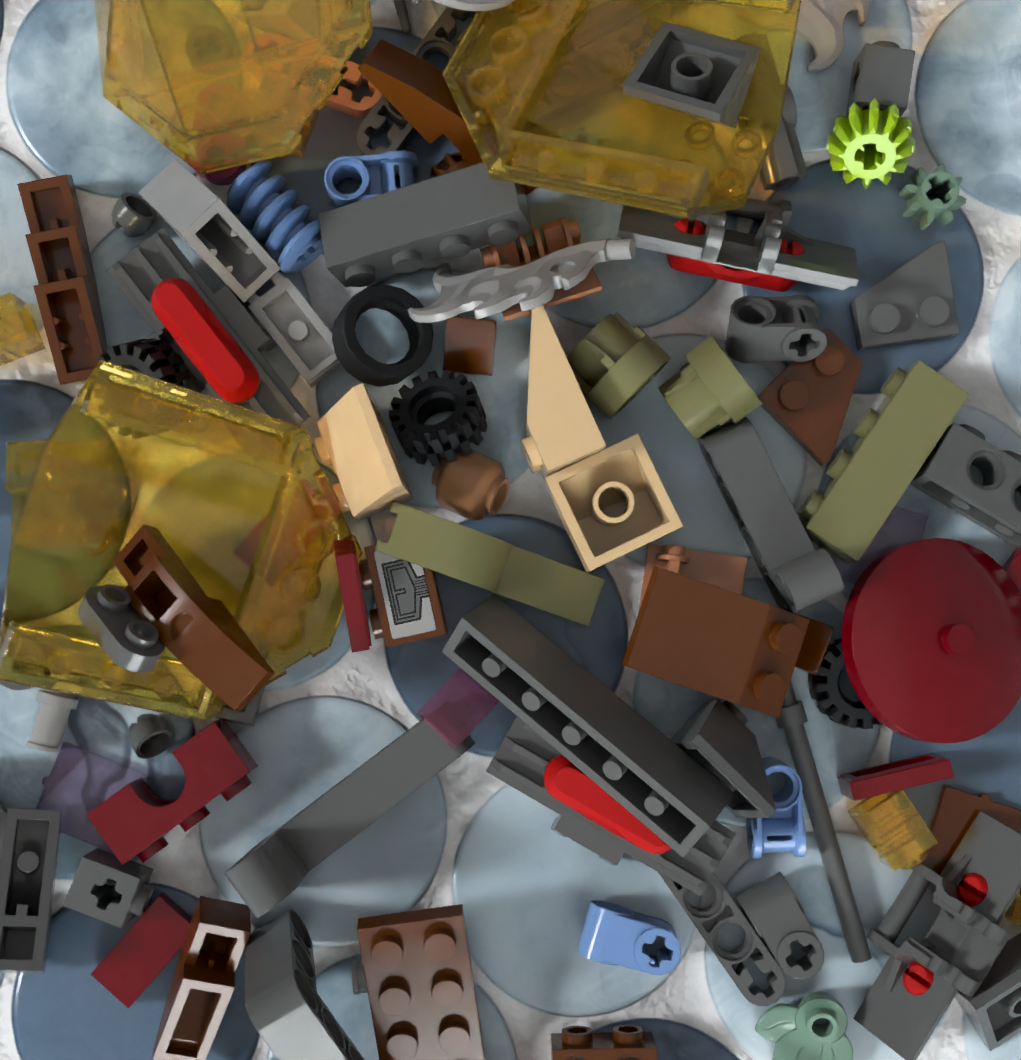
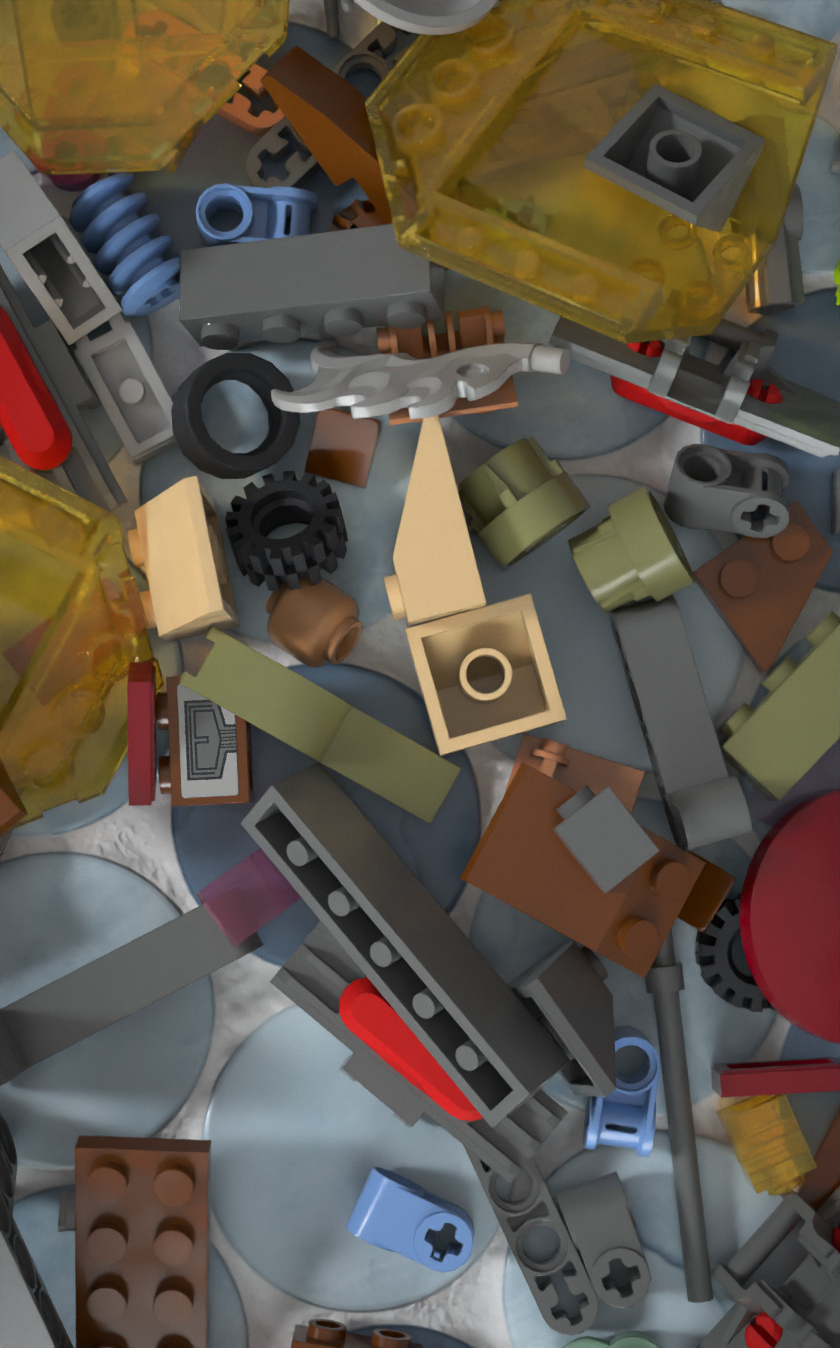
camera: 10 degrees right, 0 degrees up
(731, 613) = (603, 836): none -> dark grey brick

